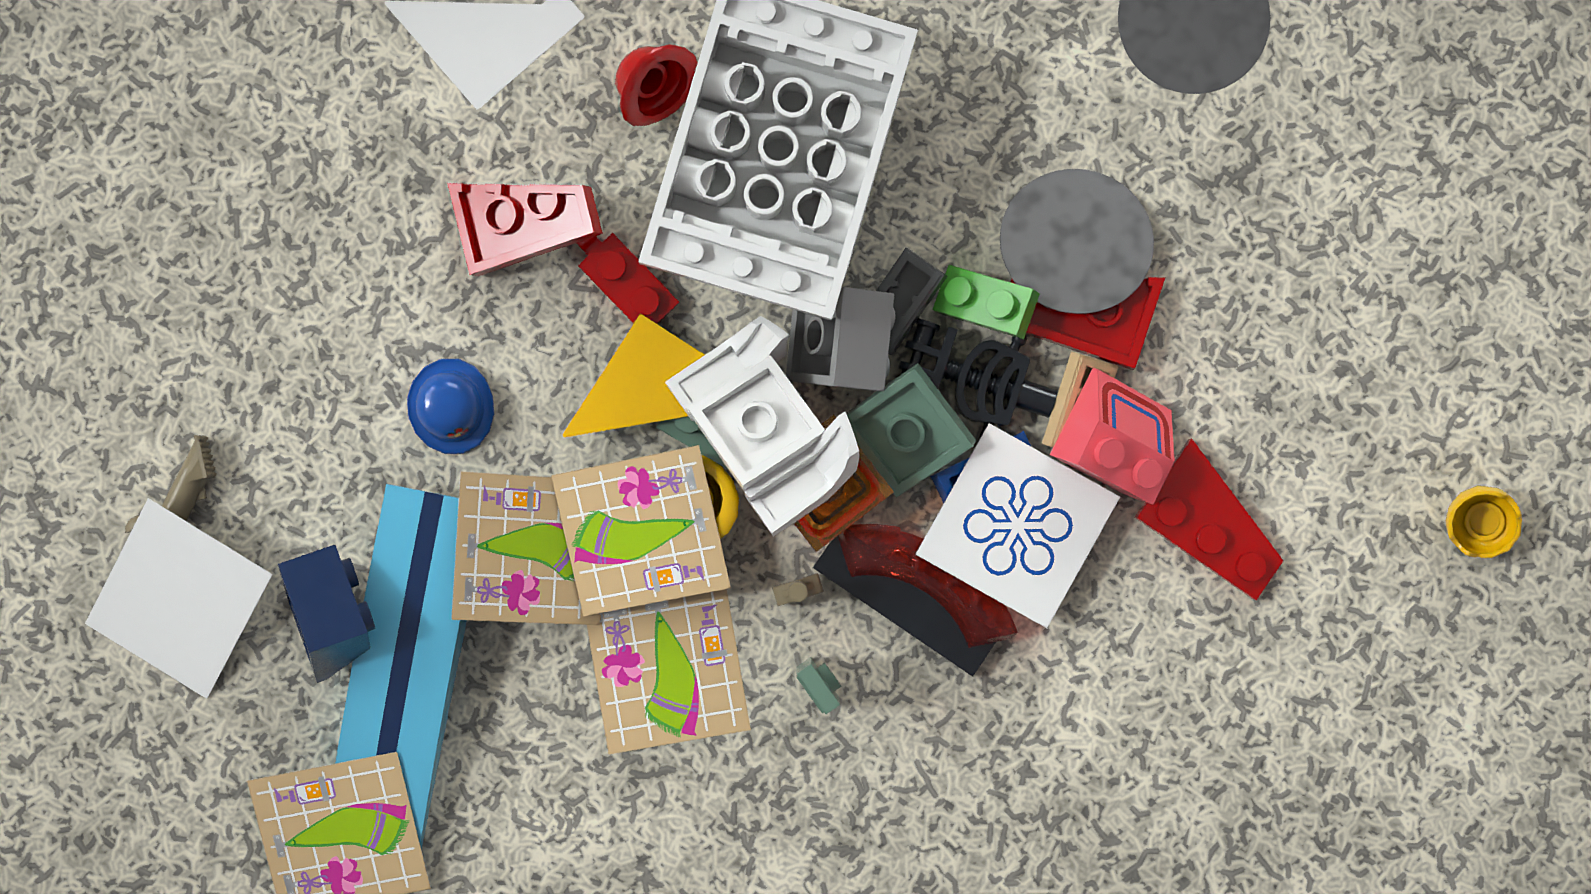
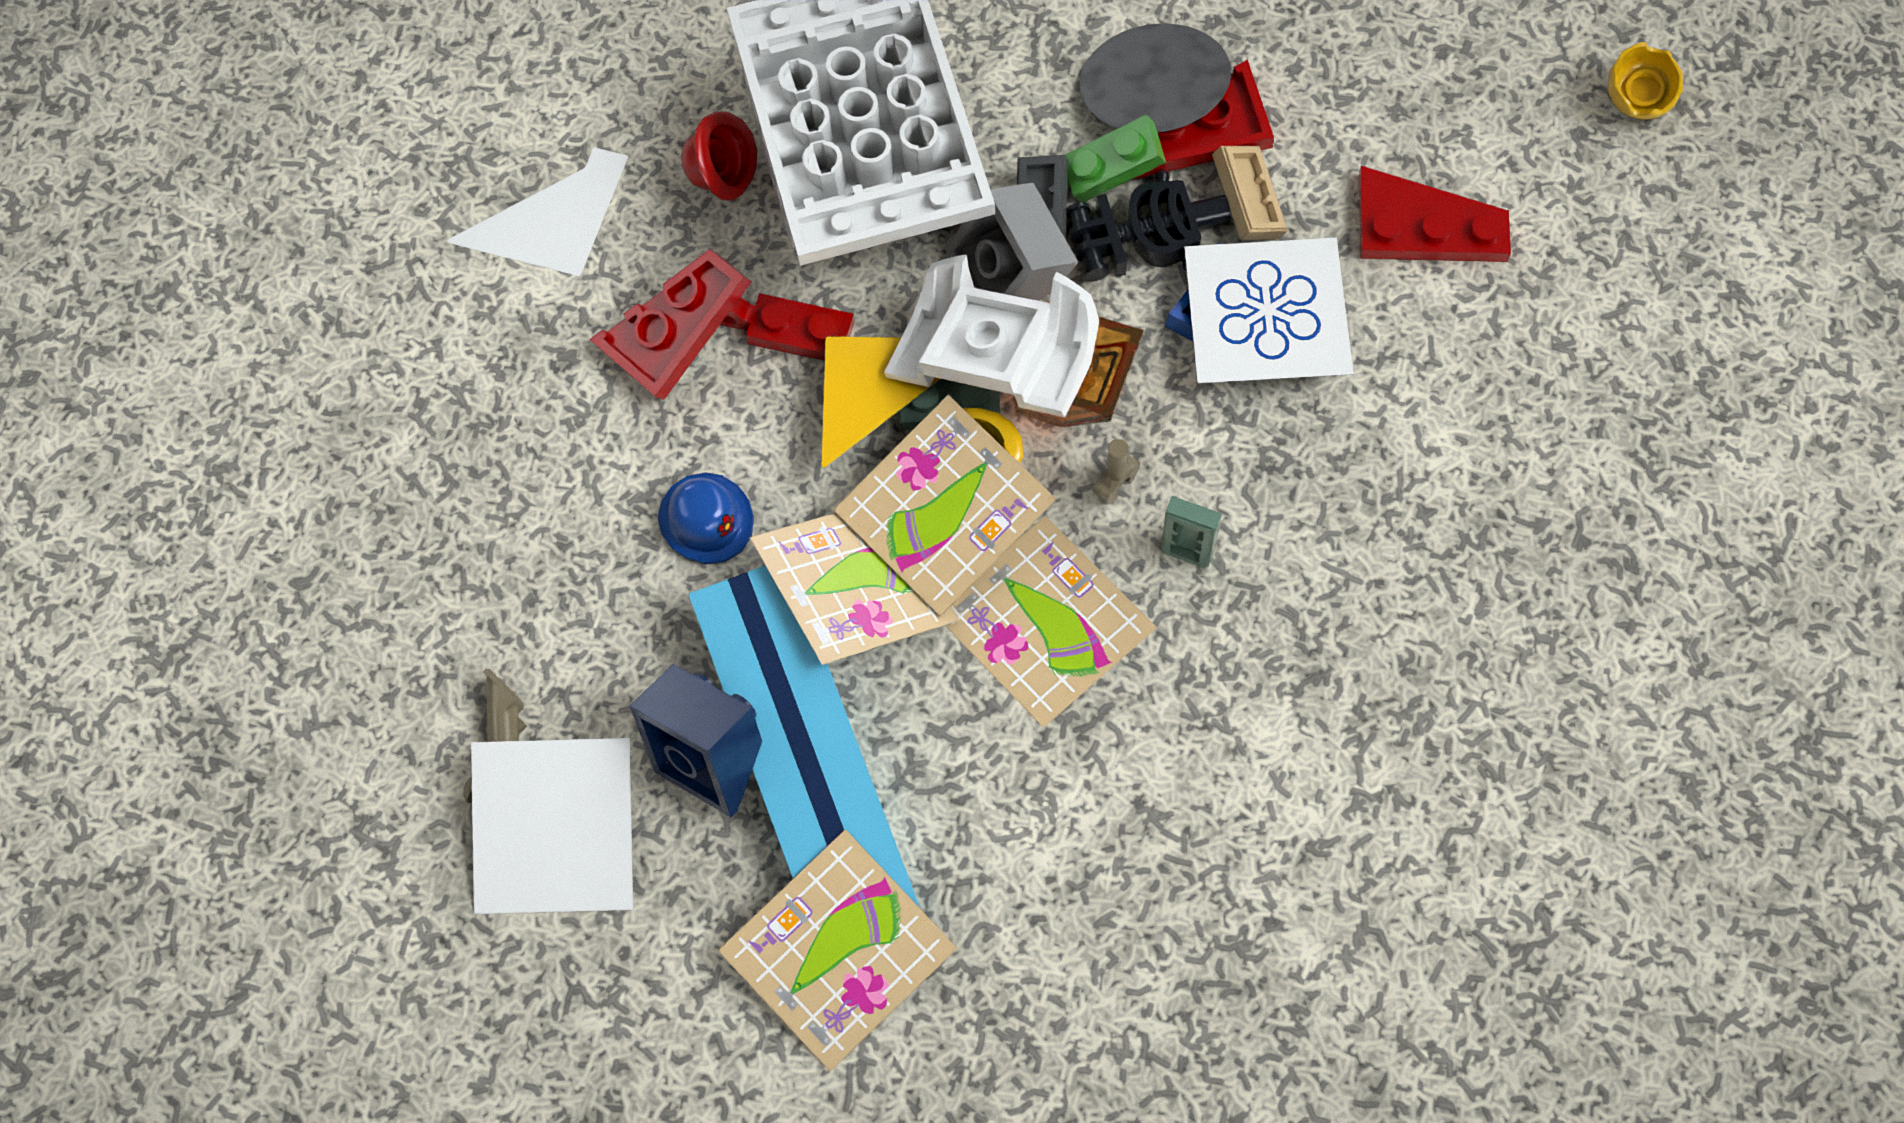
camera: 30 degrees left, 20 degrees down
(892, 554) = (1168, 401): clear red tile -> none
(905, 607) = (1220, 435): black tile -> none
(909, 430) = (1127, 281): sand green plate -> none
(1118, 438) = (1301, 196): coral slope -> none

